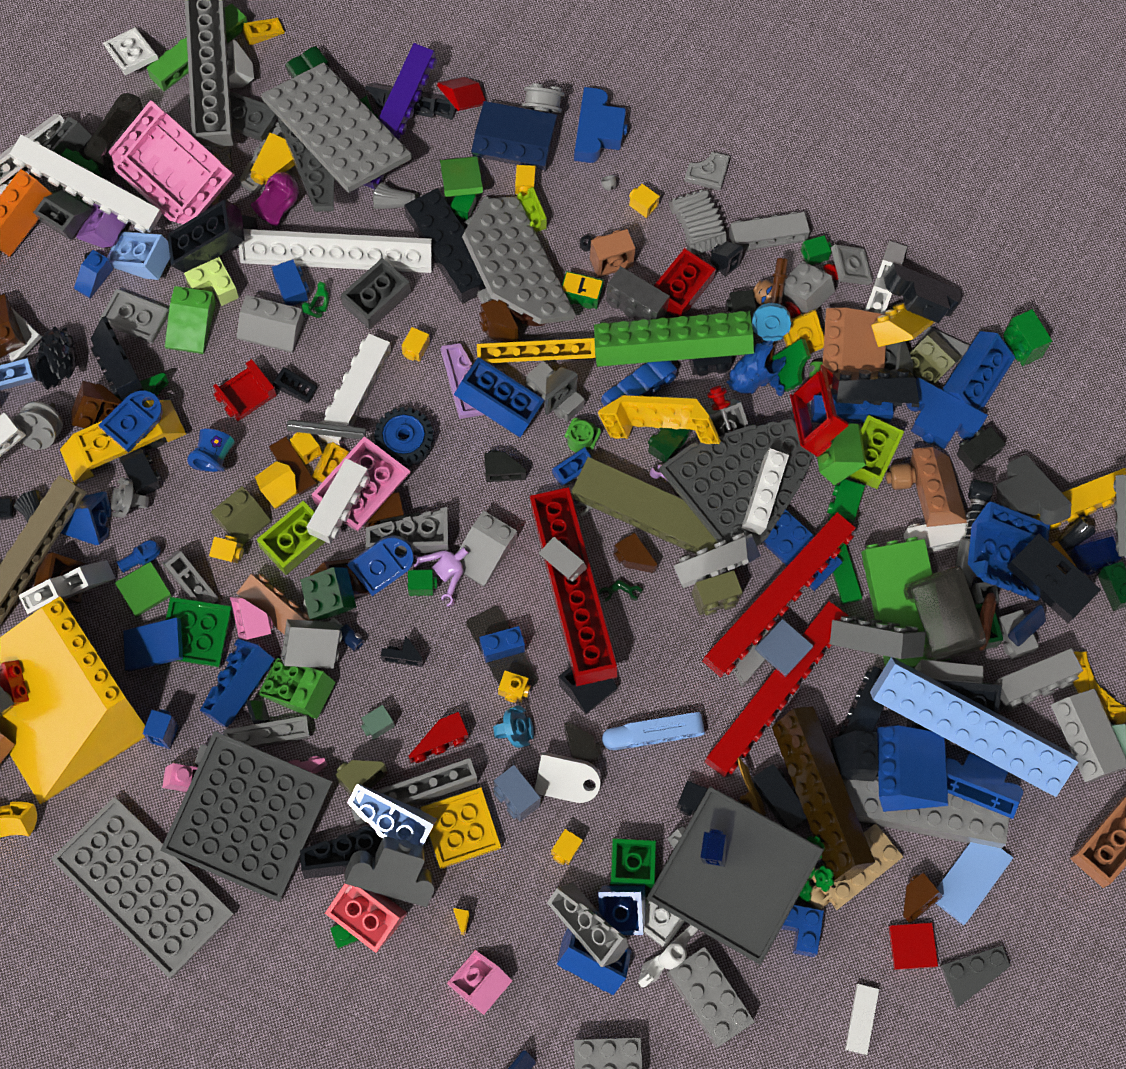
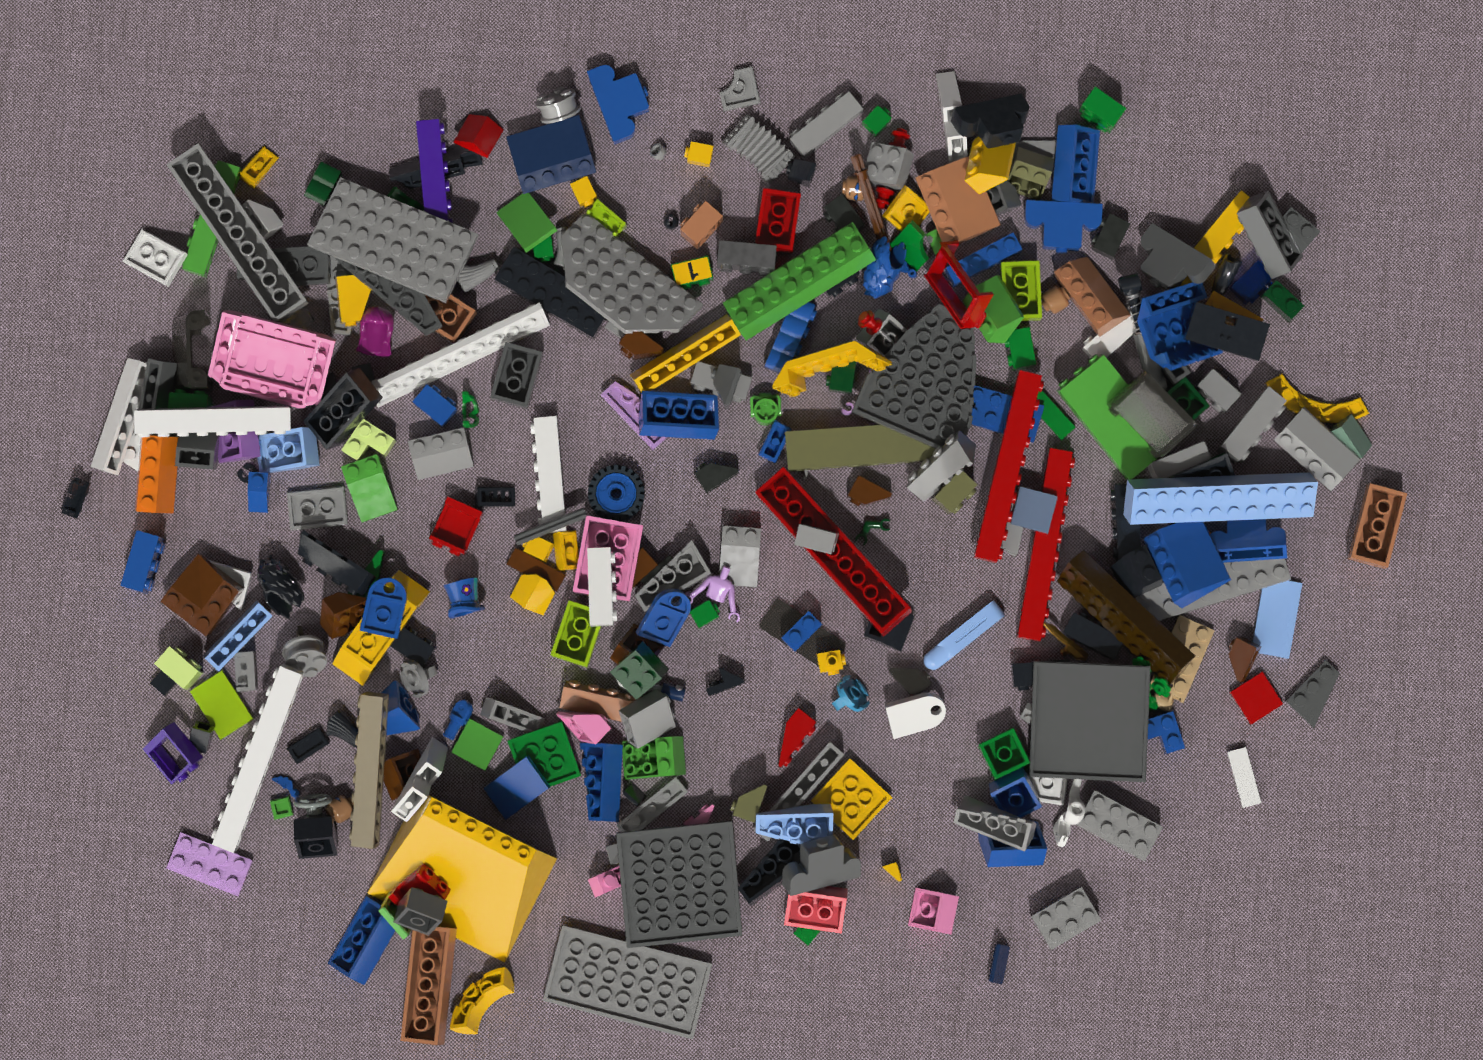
camera: 25 degrees left, 15 degrees up
(161, 728) = (567, 852): blue brick -> none
(227, 549) = (528, 674): yellow brick -> none
(240, 516) = (521, 639): olive slope -> none
(348, 215) = (454, 317): none -> nougat brick
(377, 722) = (736, 751): sand green brick -> none
(415, 344) = (577, 404): yellow brick -> none
(516, 793) = (881, 749): sand blue brick -> none
(566, 847) = (944, 769): yellow brick -> none
(714, 848) = (1064, 712): clear blue brick -> none
(765, 491) = (951, 385): white brick -> none
(771, 321) = (877, 222): dark azure tile -> none
(851, 264) = (915, 119): light grey tile -> none
(875, 387) = (996, 234): black wedge -> none
(878, 637) = (1107, 464): dark grey brick -> none
(986, 616) = (1187, 397): copper piece -> none
(1028, 626) = (1224, 382): dark blue slope -> none

